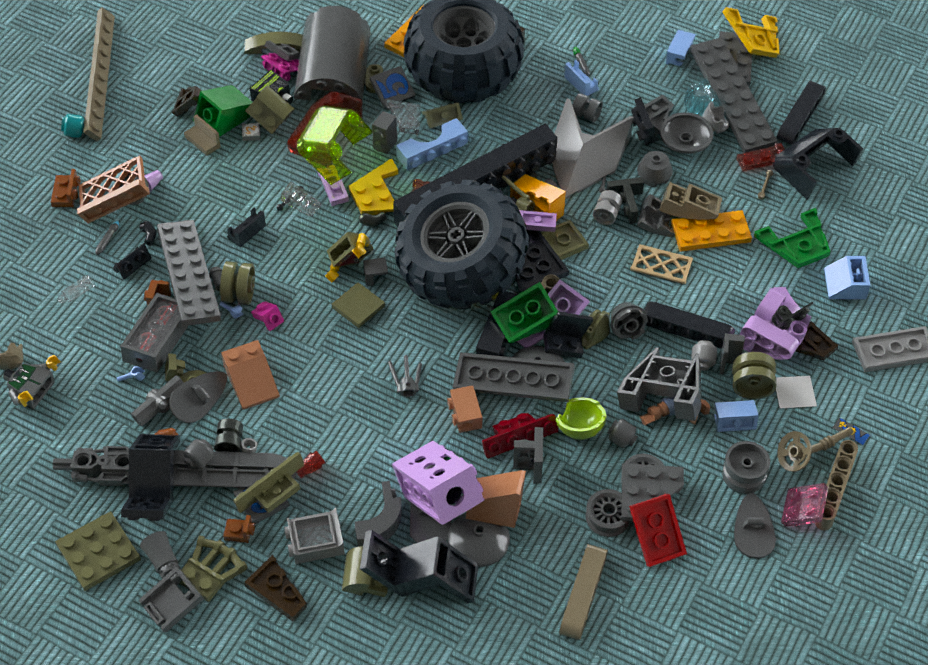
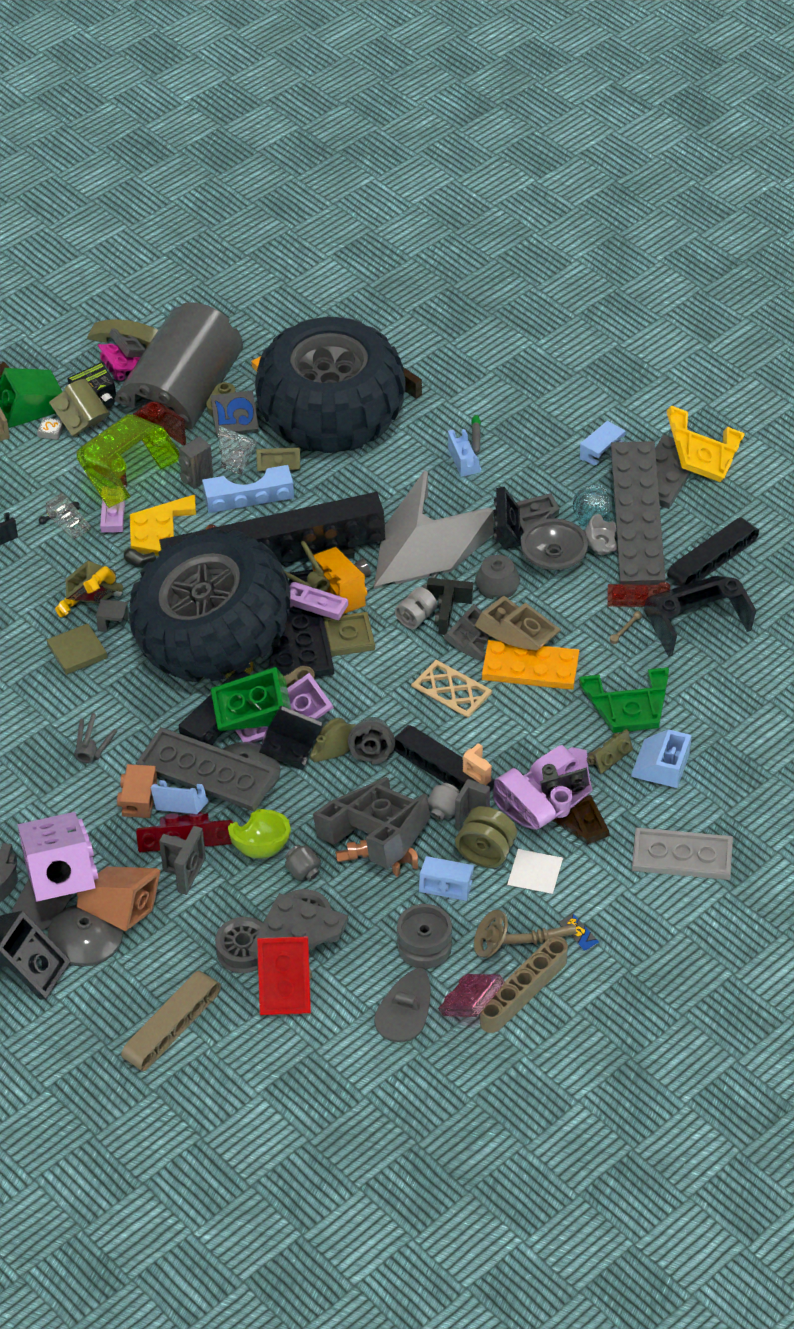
camera: 20 degrees right, 5 degrees down
(503, 408) = (178, 799): none -> light blue hinge
(588, 108) = (451, 488): dark grey wheel -> none
(720, 321) = (476, 766): none -> light nougat bracket
(805, 283) = (611, 752): none -> olive hinge

